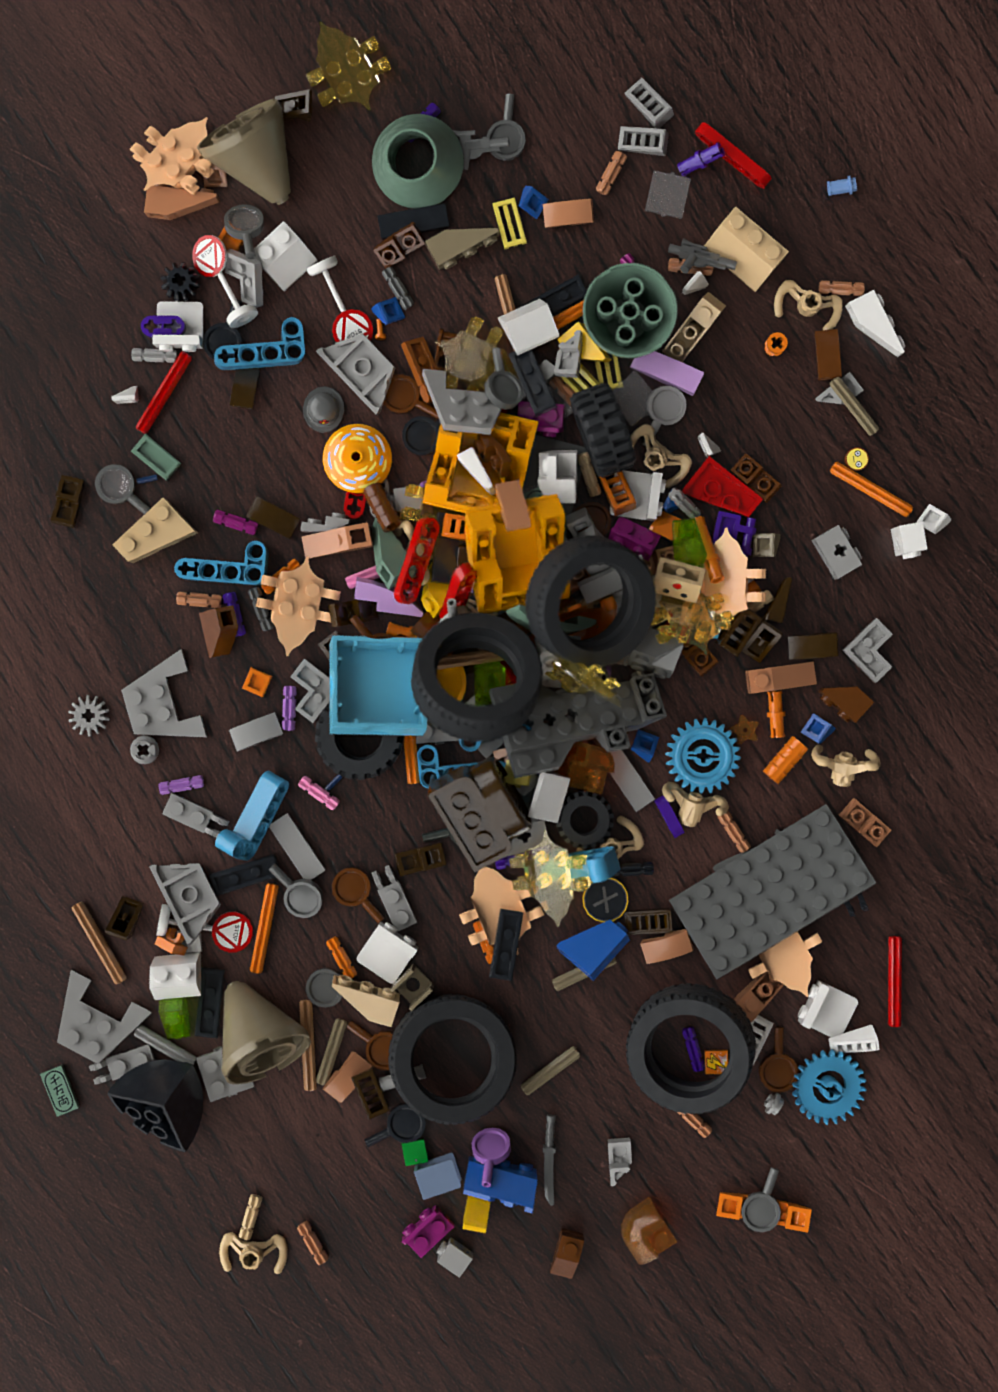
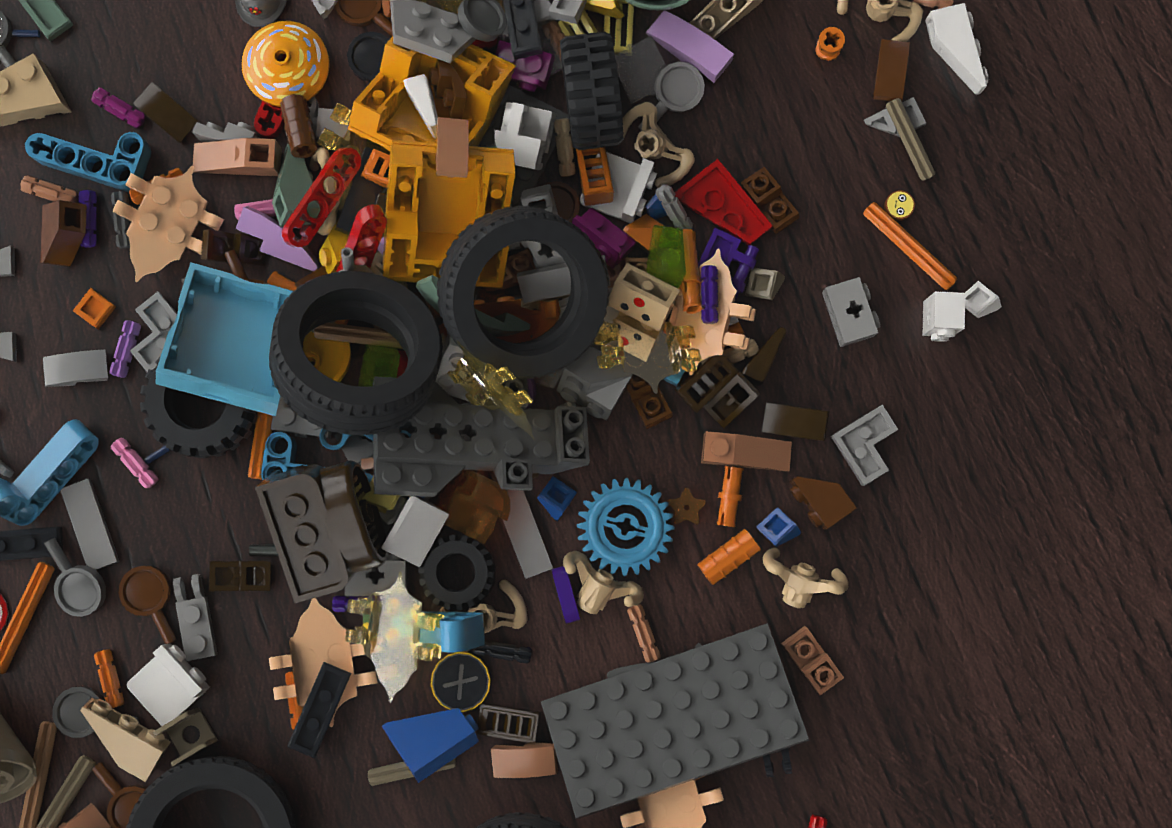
camera: 20 degrees right, 5 degrees down
(708, 446) = (719, 146): white slope -> none
(727, 565) = (709, 294): none -> dark purple axle

